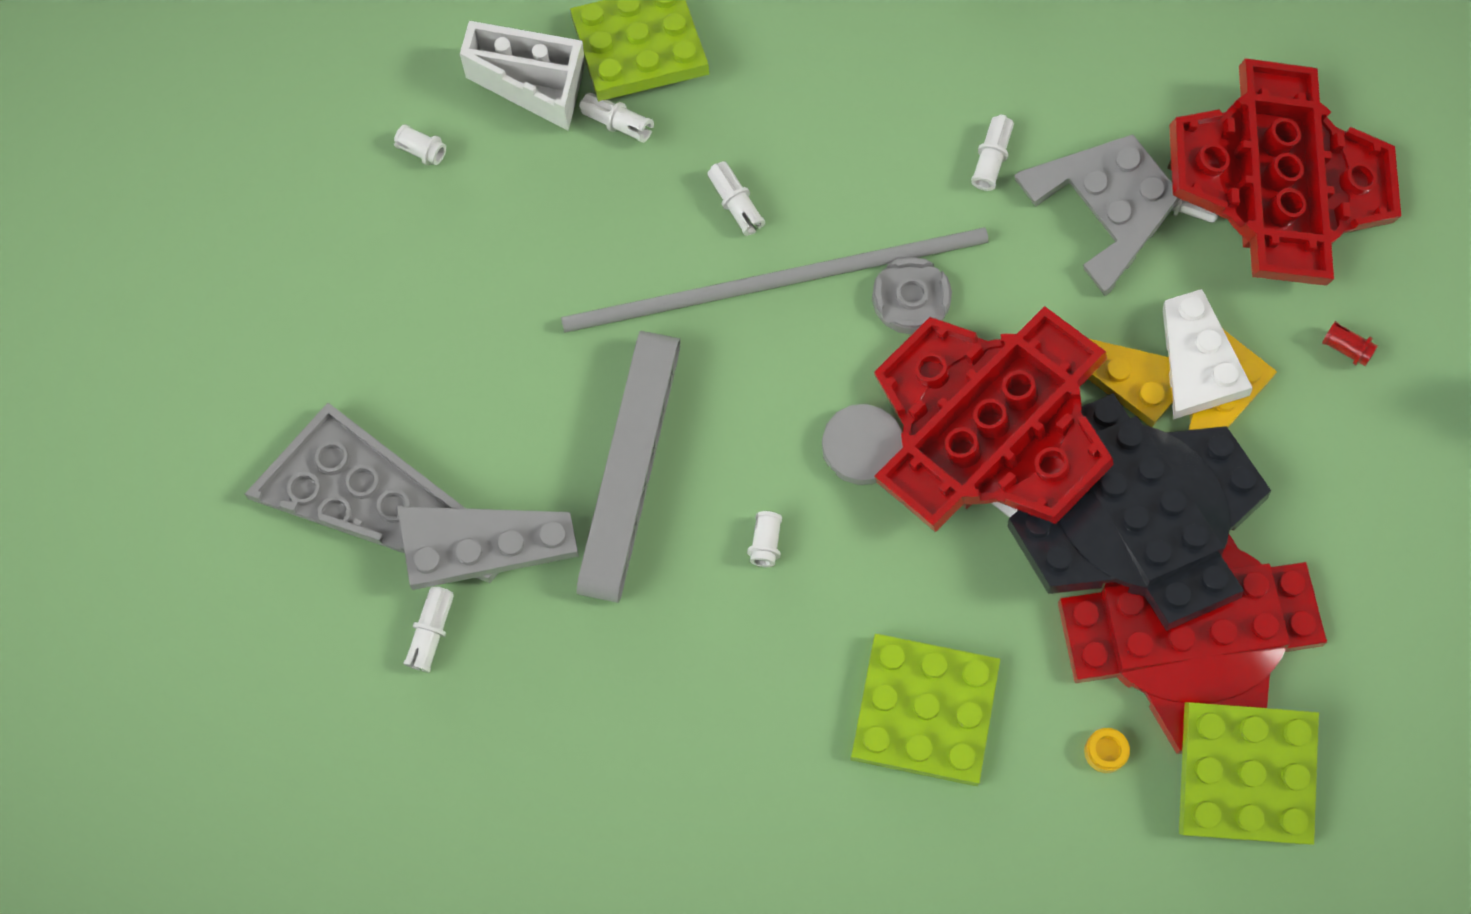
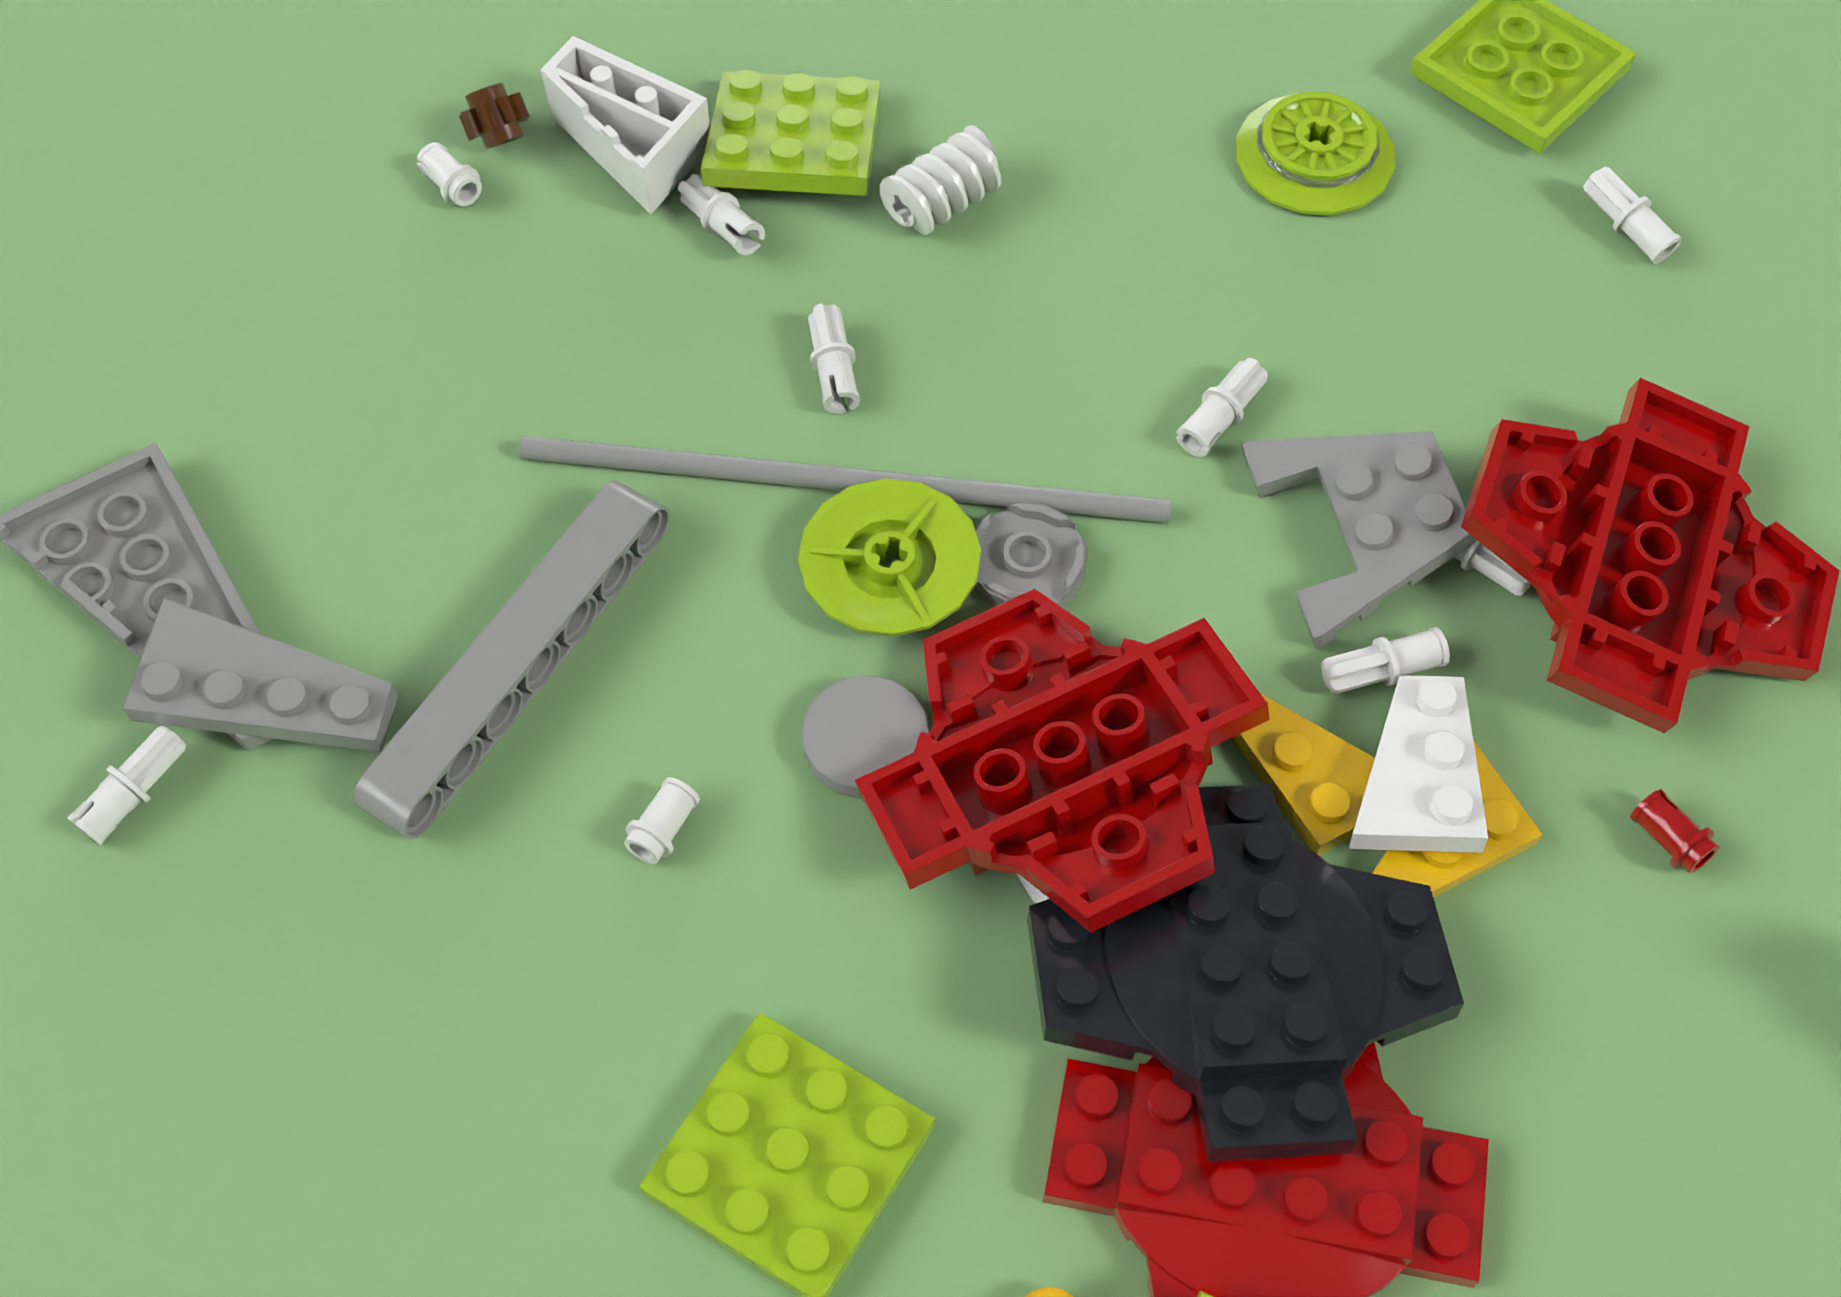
camera: 20 degrees right, 10 degrees down
(433, 92) = (494, 115): none -> reddish brown gear
(755, 48) = (942, 181): none -> white piece
(834, 296) = (881, 521): none -> lime piece
(1151, 292) = (1385, 661): none -> white axle

